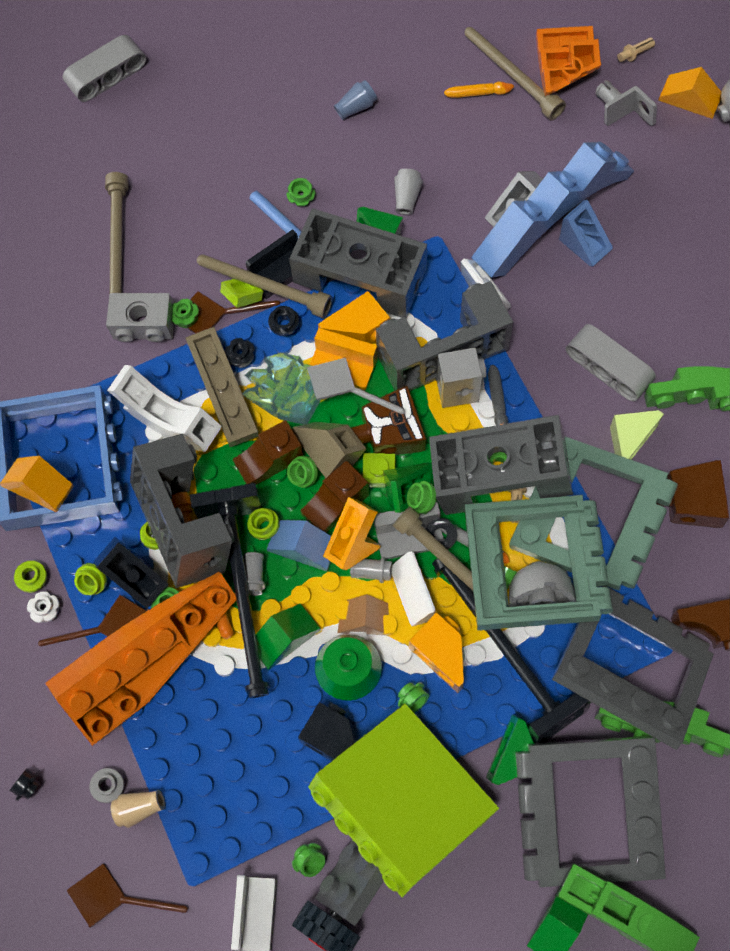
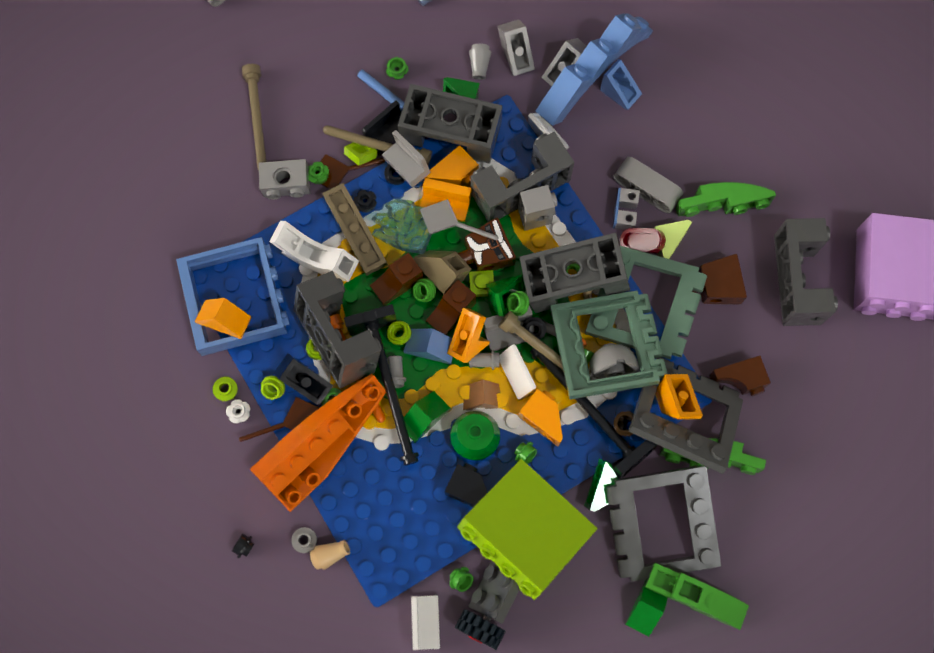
camera: 10 degrees left, 5 degrees up
(100, 895) = (309, 620): reddish brown piece -> none
(297, 304) = (406, 160): none -> light grey panel
(455, 177) = (516, 47): none -> light grey slope
(497, 396) = (565, 218): dark grey piece -> none
(545, 667) = (621, 421): none -> dark brown cone
(576, 381) = (623, 201): none -> flat silver piece
(597, 431) = (643, 239): none -> tile
(623, 640) = (677, 397): none -> light orange slope

